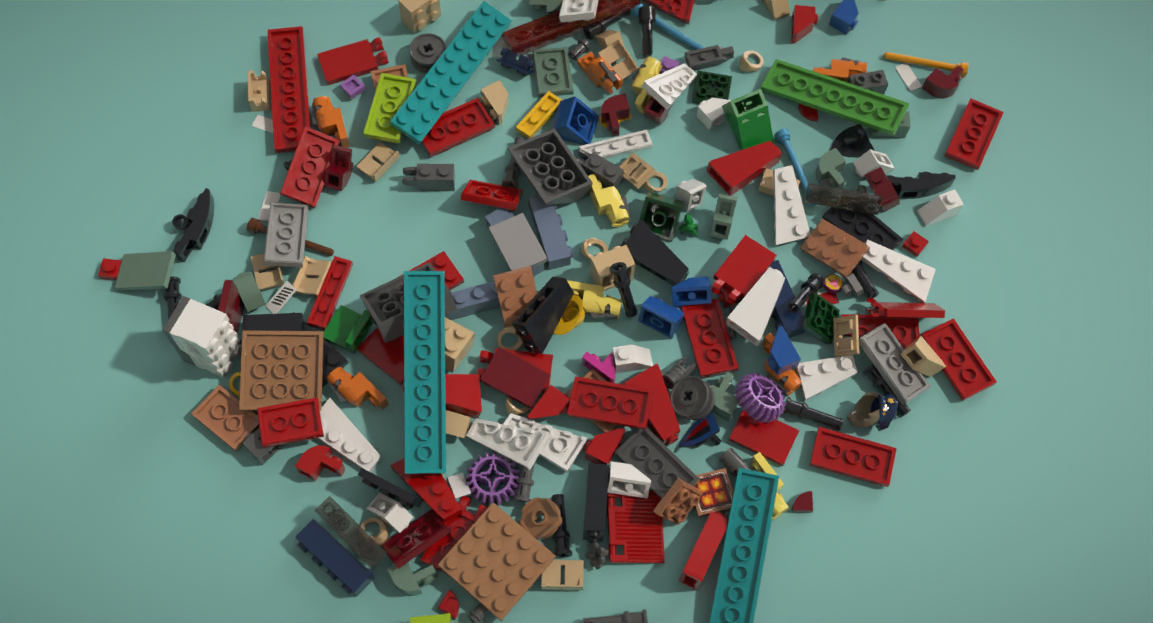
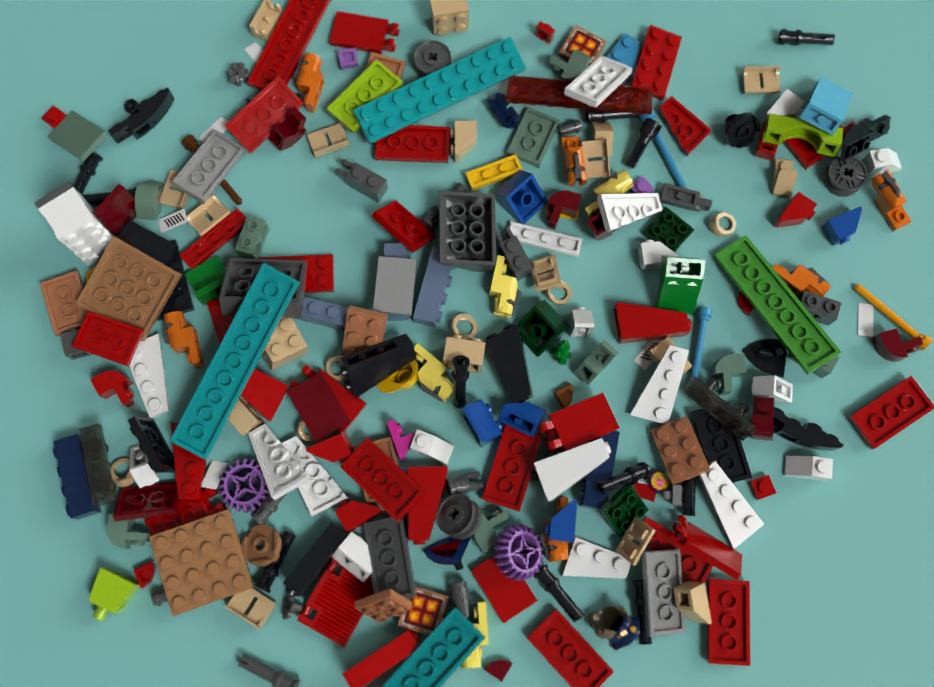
camera: 30 degrees right, 10 degrees up
(259, 147) = (237, 73): none -> dark grey plant
(364, 271) = (252, 238): none -> sand green brick
(713, 259) = (564, 395): none -> dark orange tile
(757, 196) = (643, 358): none -> white sticker

